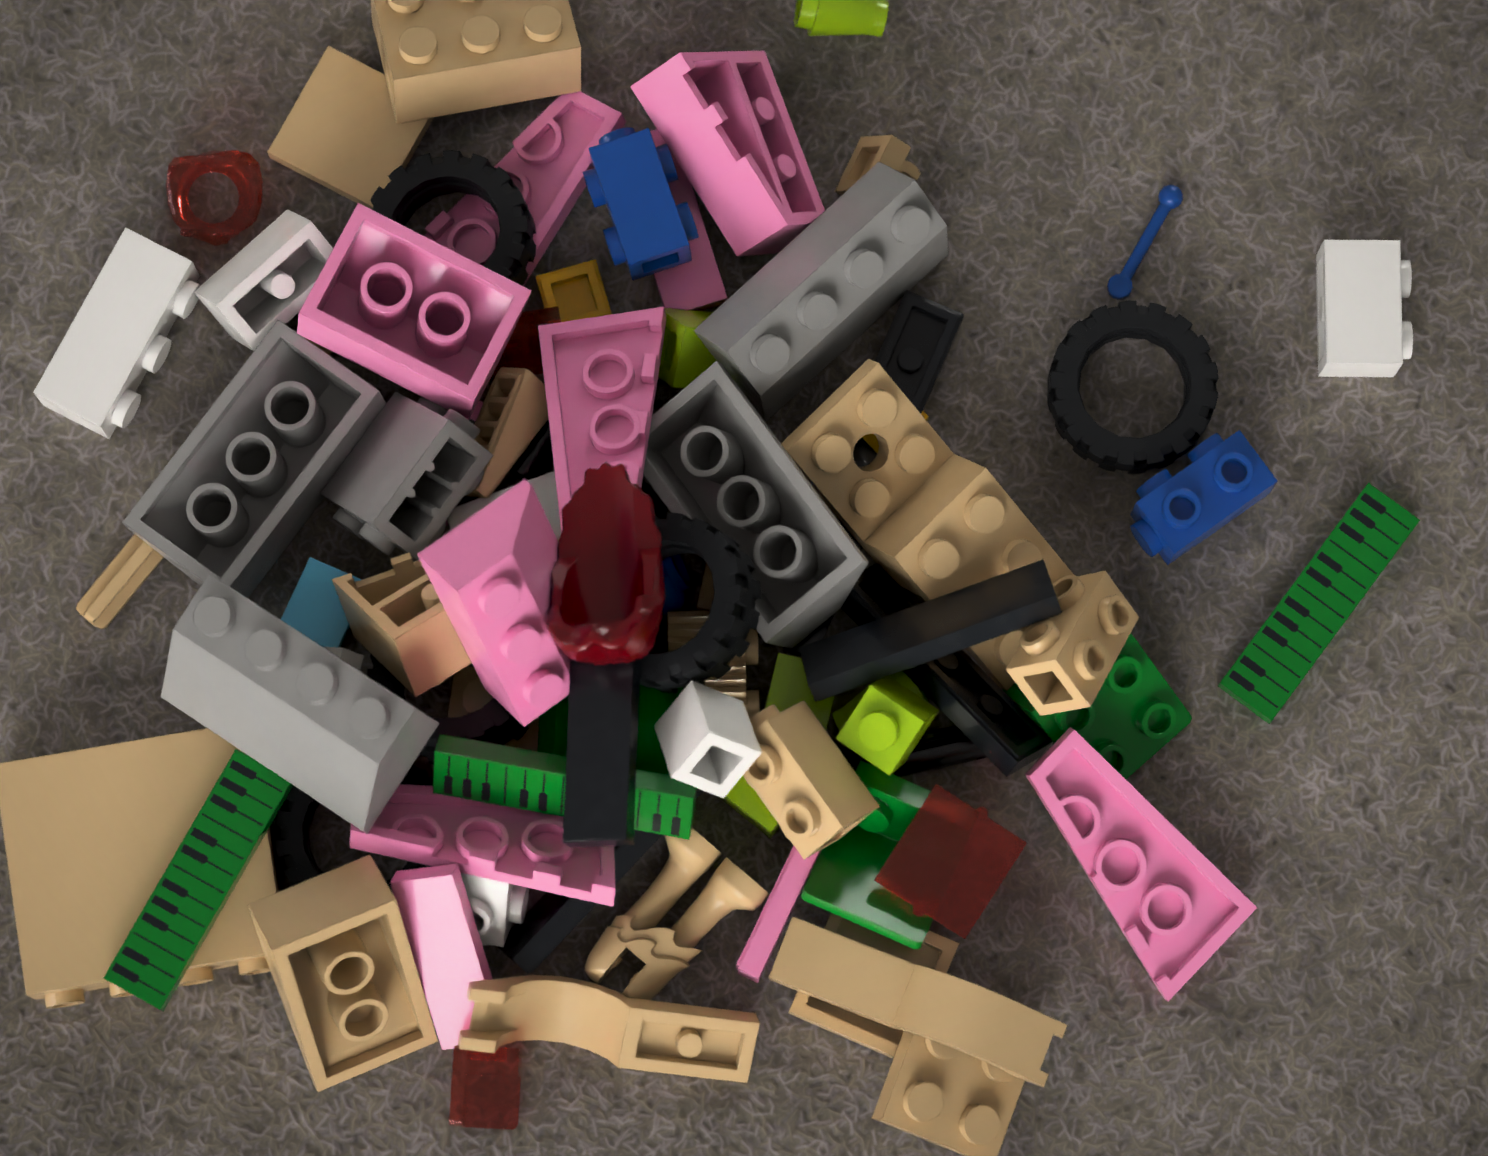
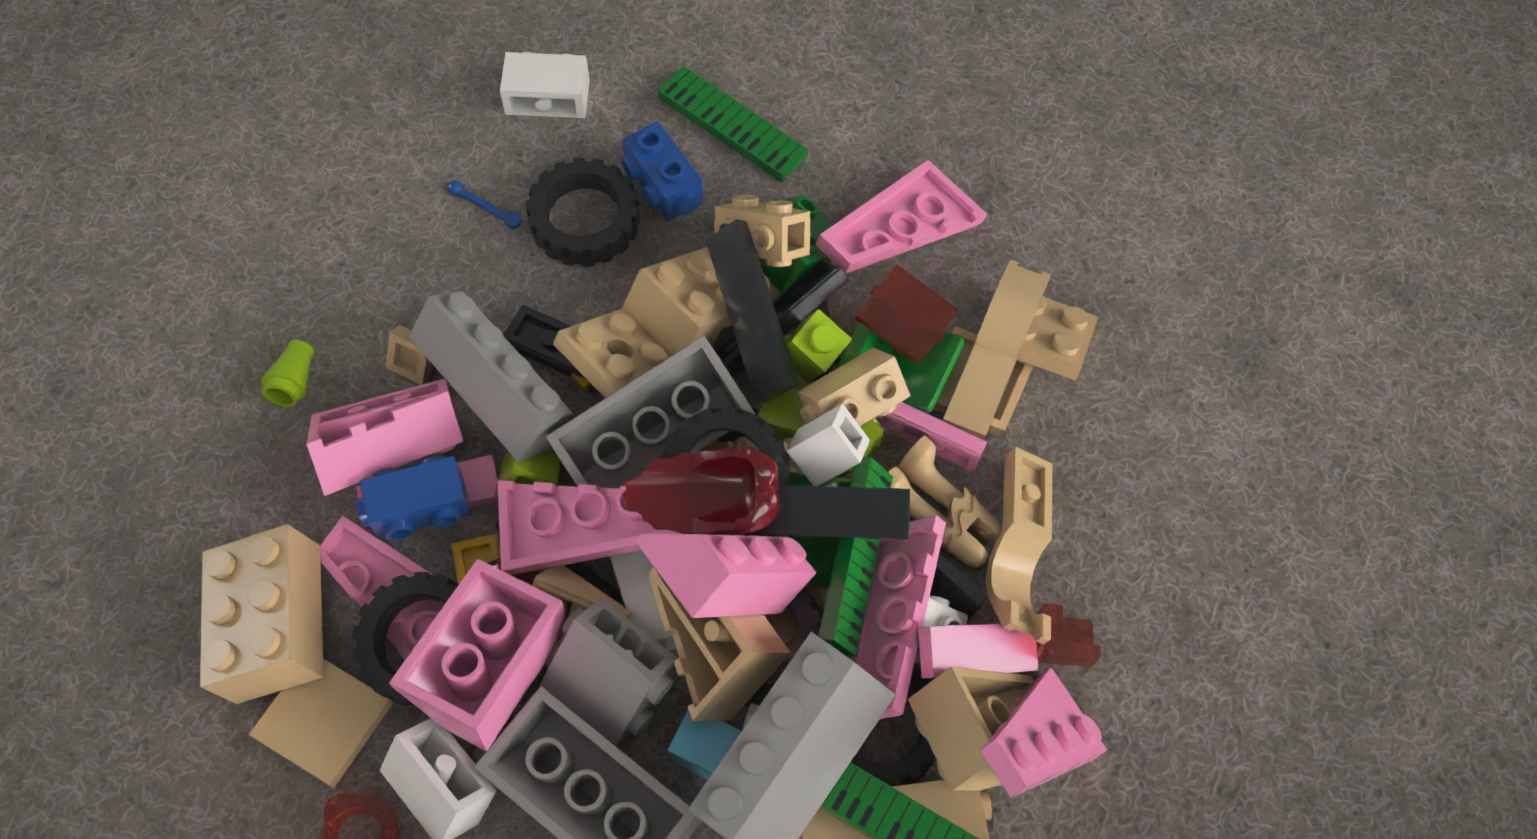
camera: 90 degrees left, 15 degrees down
(326, 1030) = (1042, 738): none -> bright pink wing

